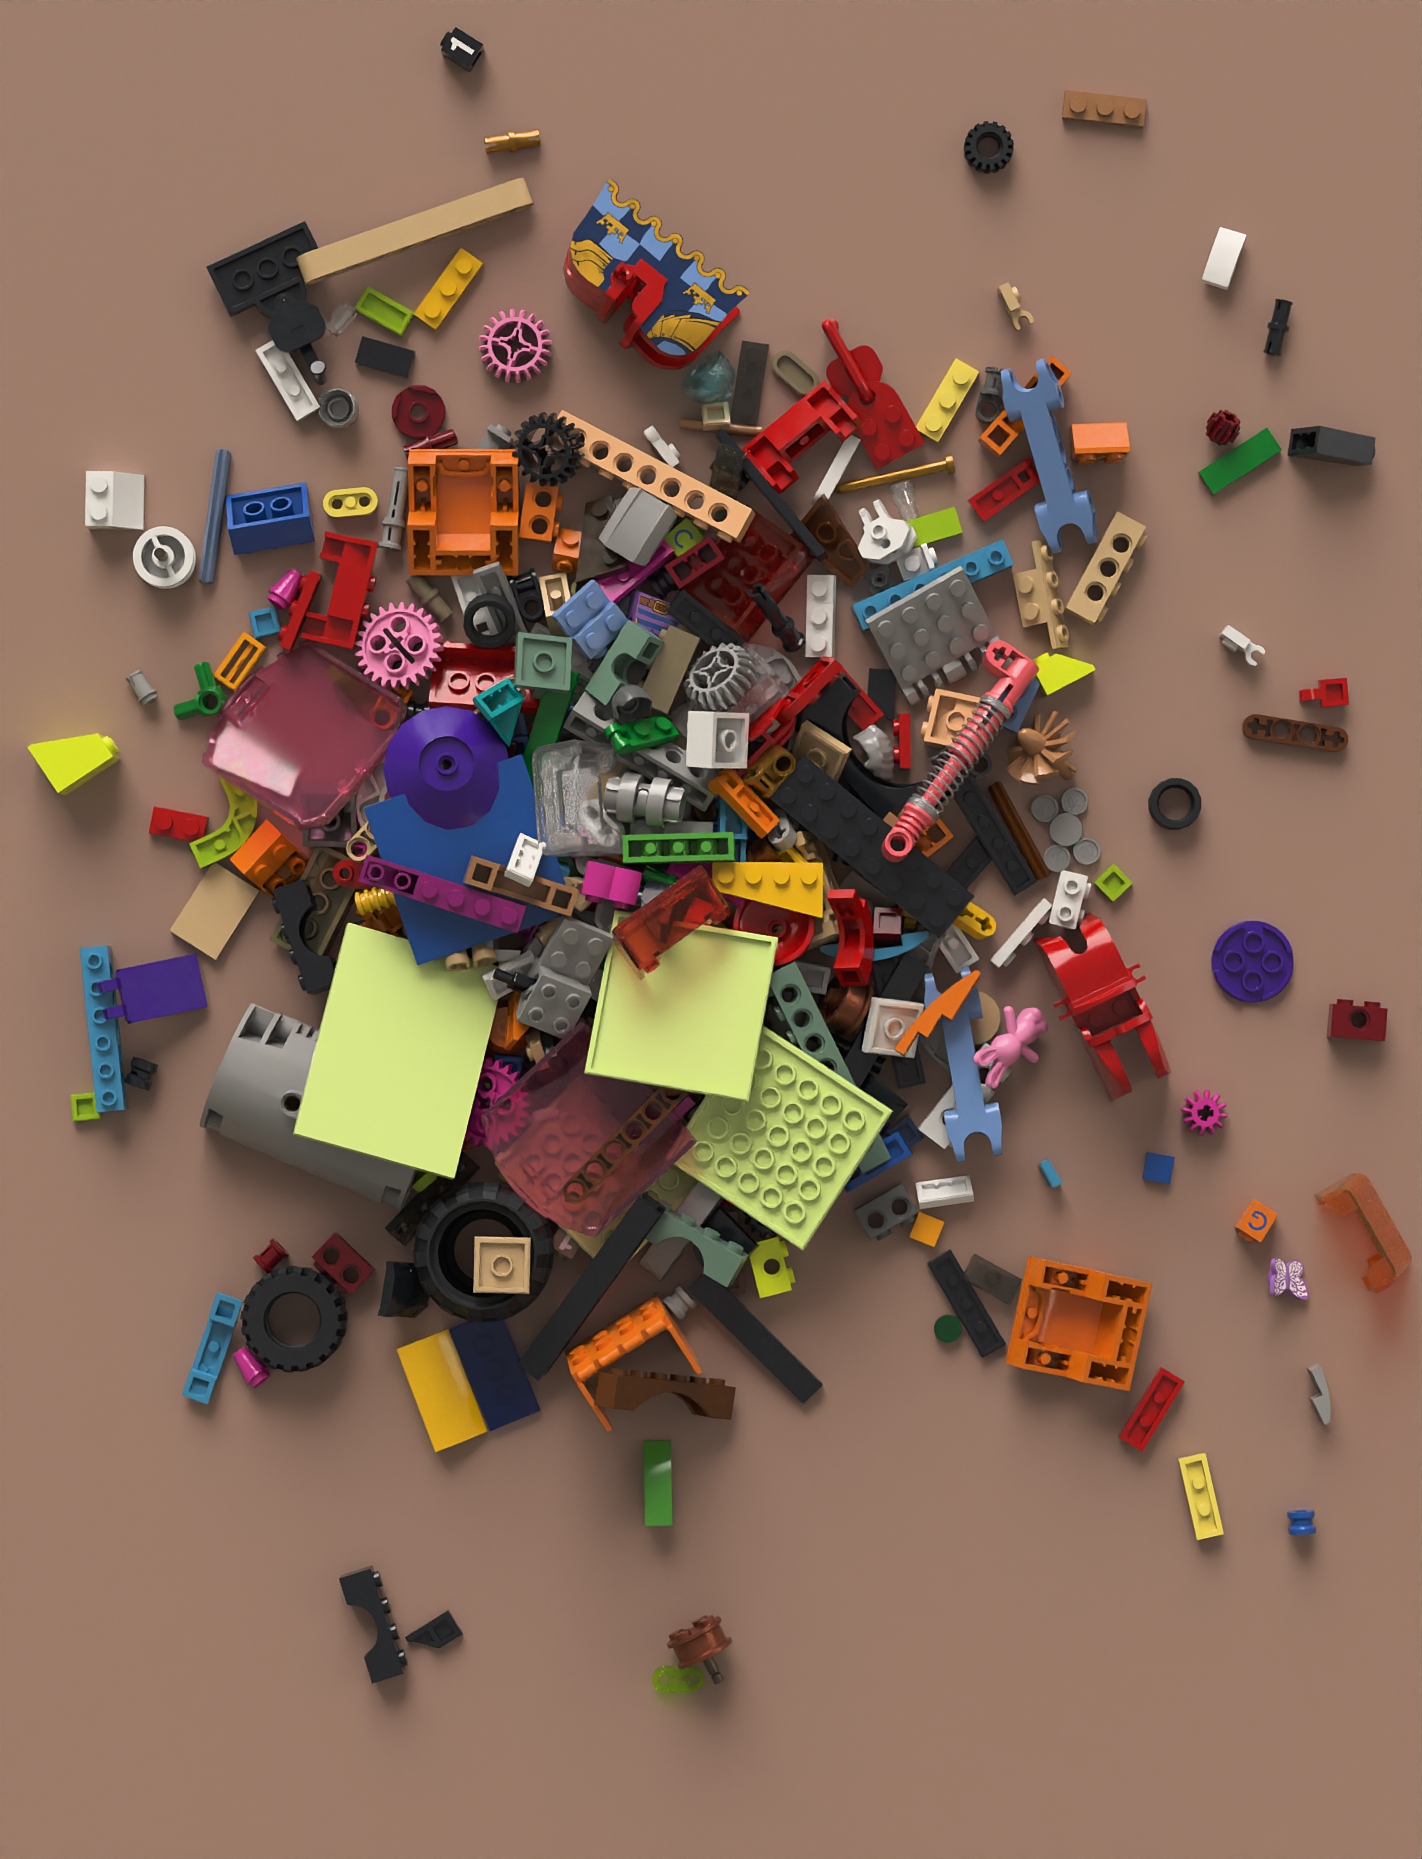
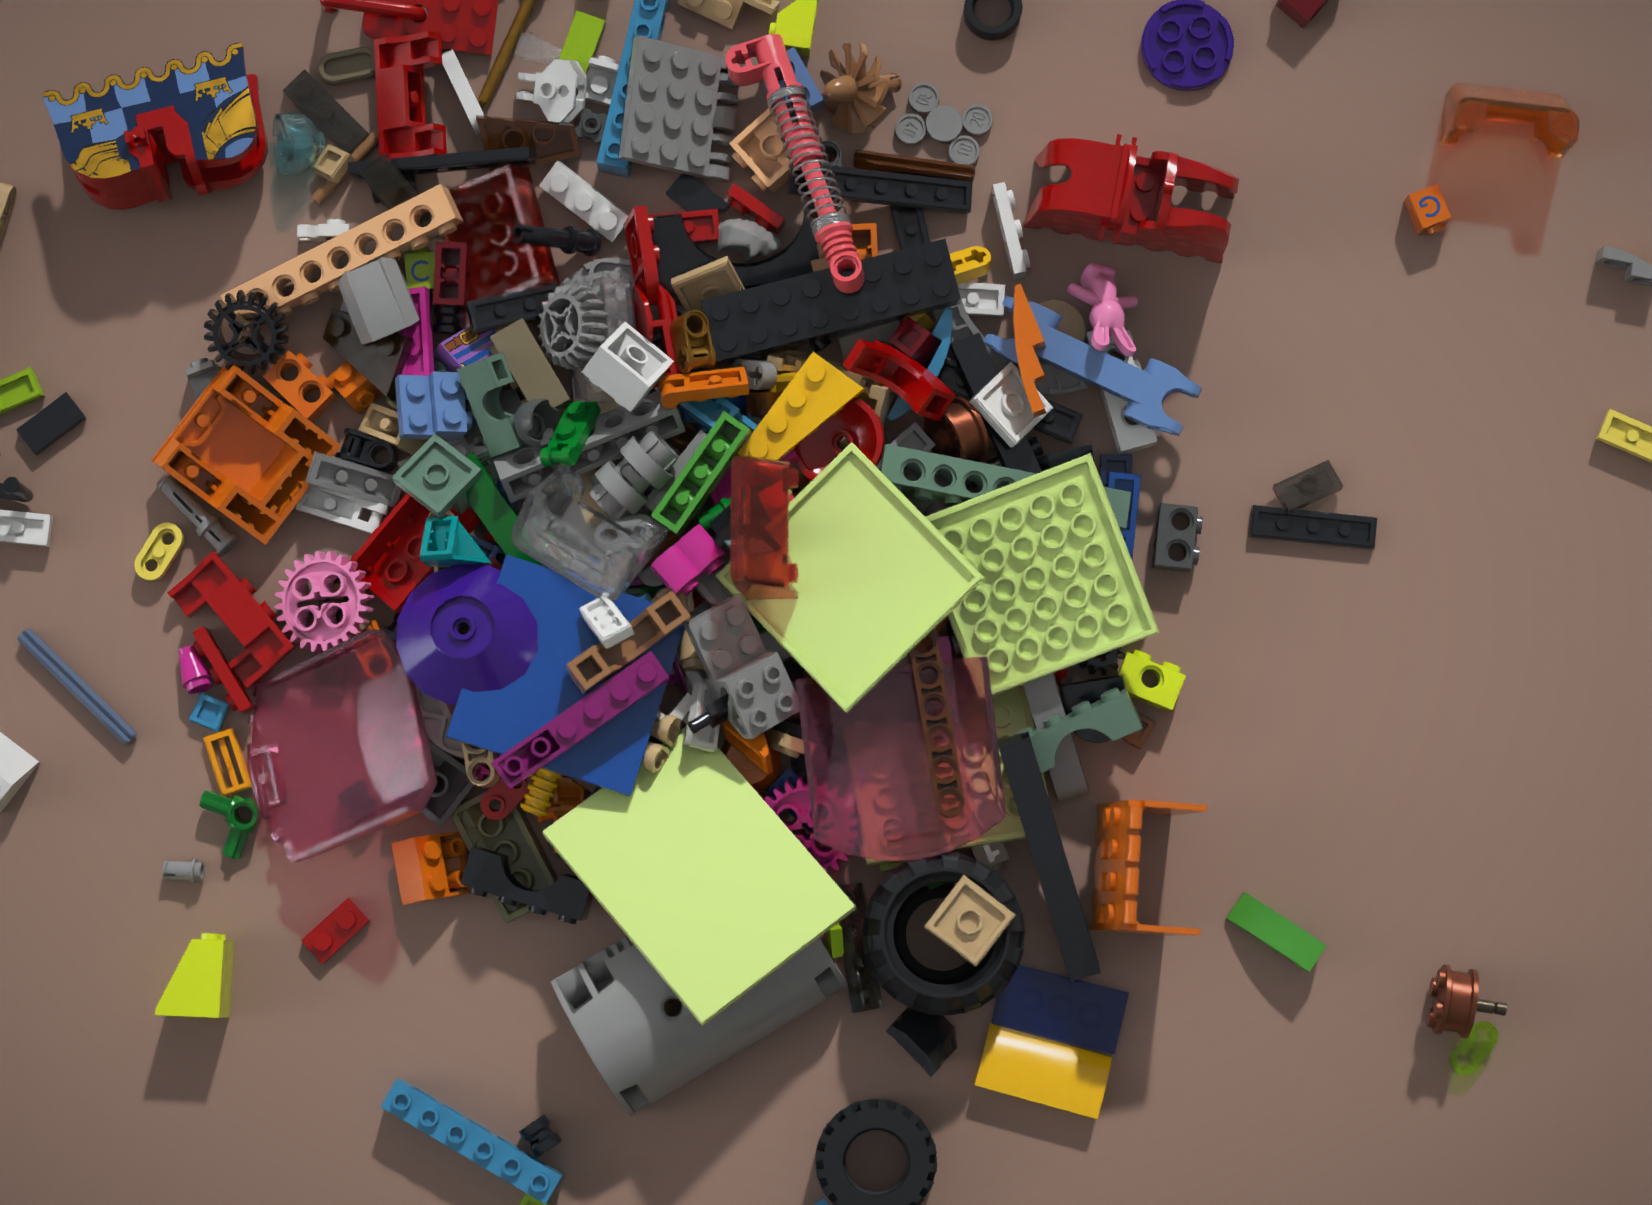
camera: 50 degrees left, 5 degrees down
(156, 989) = (472, 1063): dark purple tile -> none
(164, 557) = (78, 759): white wheel -> none
(214, 910) = (440, 955): tan tile -> none
(234, 831) = (380, 881): lime plate -> none
(269, 518) = (118, 636): blue slope -> none
(271, 1256) = (801, 1139): dark red bush -> none
(338, 408) = (64, 499): light grey hair -> none
(347, 1258) = (856, 1068): dark red brick -> none
(412, 397) = (137, 443): dark red tile -> none
(429, 597) = (300, 543): dark tan pin -> none
(438, 441) = (166, 425): dark red axle -> none
(448, 289) = (34, 321): yellow plate -> none
(489, 641) = (385, 509): black tyre -> none
(503, 343) = (122, 304): bright pink gear -> none
(627, 1392) = (1176, 887): reddish brown arch -> none
(680, 1302) = (1122, 788): light grey wheel -> none
(756, 1337) = (1204, 742): black tile -> none
(926, 1229) = (1218, 513): light orange tile -> none
(944, 1192) = (1196, 471): white plate -> none
(947, 1328) = (1324, 561): dark green tile -> none
(1049, 1173) = (1248, 363): dark azure tile -> none
(1068, 899) = (1012, 166): white bracket -> none
(1078, 1323) = (1407, 435): orange slope -> none
(1113, 882) = (1023, 117): lime tile -> none
(1151, 1409) = (1533, 429): red plate -> none
(1158, 1168) = (1314, 263): blue tile -> none
(1209, 1120) = (1282, 181): dark pink gear -> none
(1287, 1278) = (1498, 220): medium lavender animal -> none

